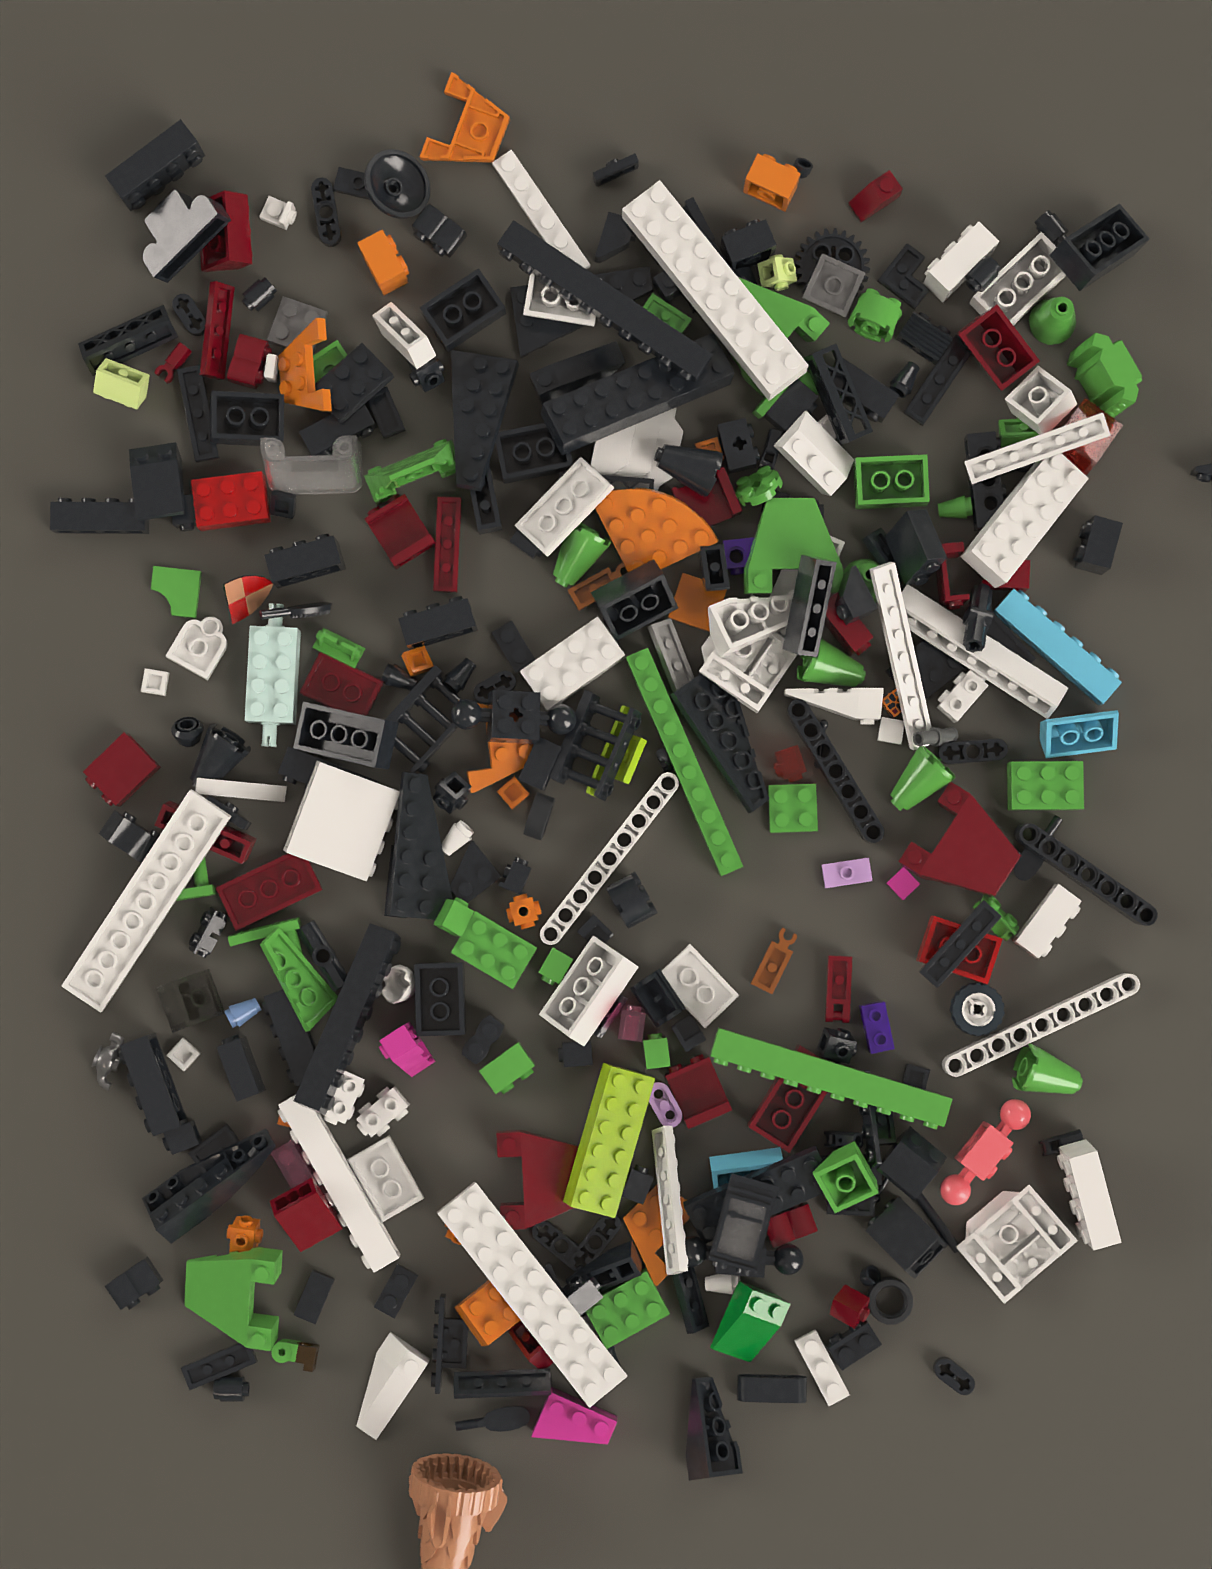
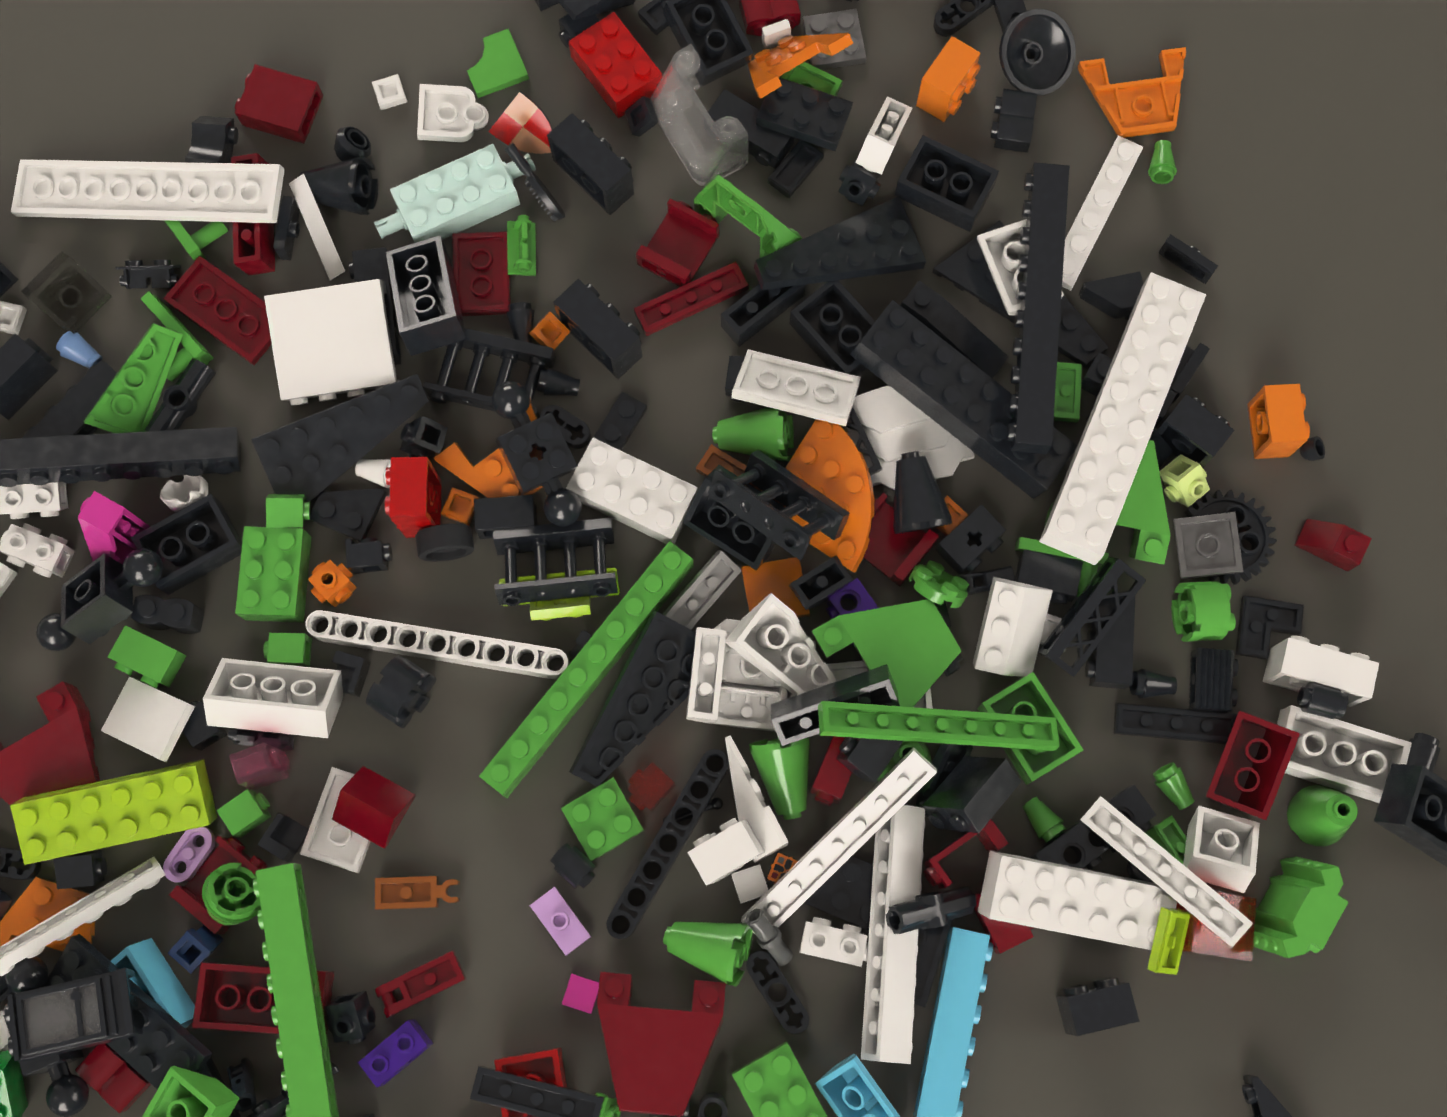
camera: 60 degrees right, 10 degrees down
(450, 1080) = (98, 598): none -> black brick
(497, 818) = (414, 494): none -> red brick
(533, 144) = (1162, 165): none -> bright green cone
(554, 1087) = (147, 719): none -> white tile
(639, 552) = (787, 489): none -> black fence
(658, 998) = (305, 781): black hinge -> none
(701, 960) = (372, 806): none -> dark red slope
(713, 1084) = (230, 894): none -> bright green cone
(734, 1127) = (195, 947): none -> dark blue brick
(815, 844) = (573, 866): none -> black brick
(863, 544) = (937, 726): none -> bright green plate
(864, 734) = (726, 852): none -> white brick
(980, 406) = (1174, 785): none -> bright green cone
(1082, 472) = (1168, 941): none -> lime tile

